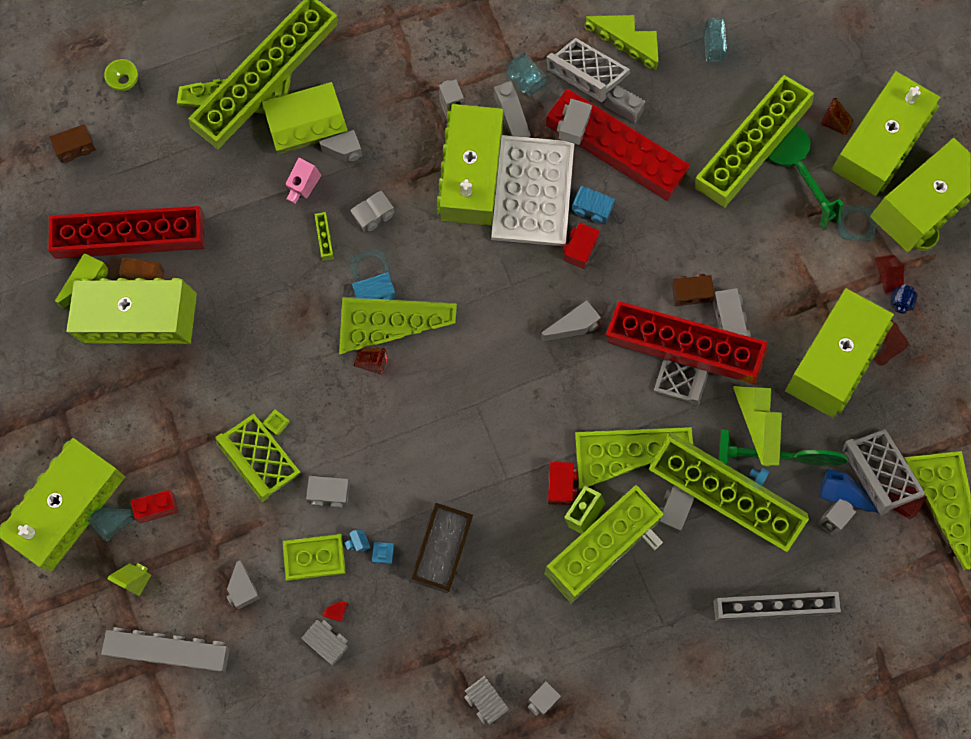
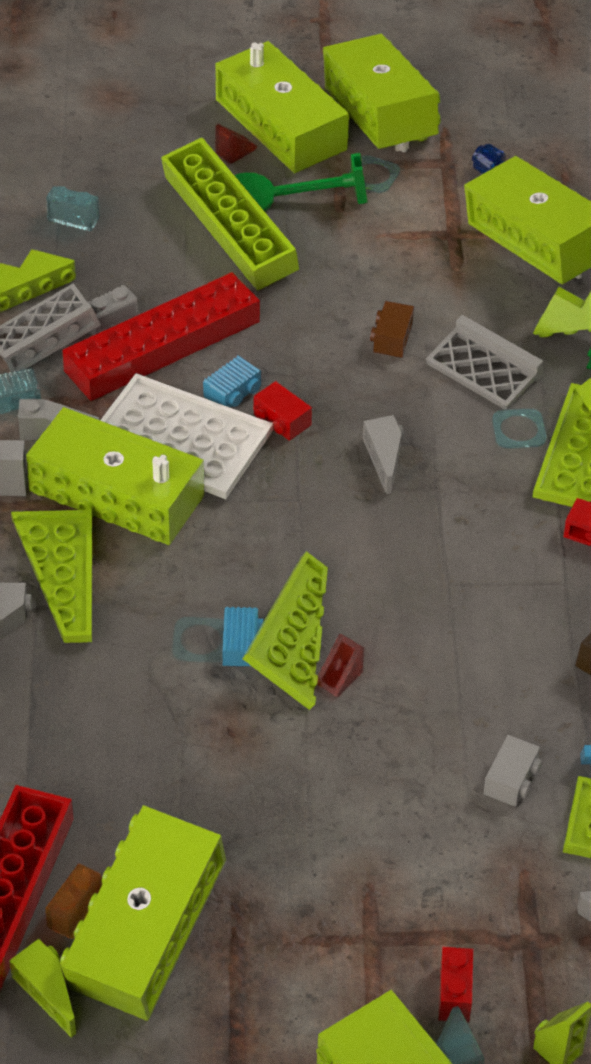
camera: 70 degrees left, 25 degrees down
(245, 469) = (435, 859): lime fence -> none
(276, 422) = (383, 808): lime tile -> none
(302, 180) = (34, 663): bright pink torso -> none
(324, 236) = (128, 671): lime piece -> none
(372, 211) = (122, 605): light grey brick -> none
(398, 161) = (62, 561): none -> lime wing
(574, 122) = (121, 346): light grey brick -> none
(639, 389) = (532, 414): none -> clear light blue piece
(687, 342) = (466, 342): red brick -> none
(729, 311) = (444, 306): light grey brick -> none
(890, 271) = (450, 162): clear red slope -> none

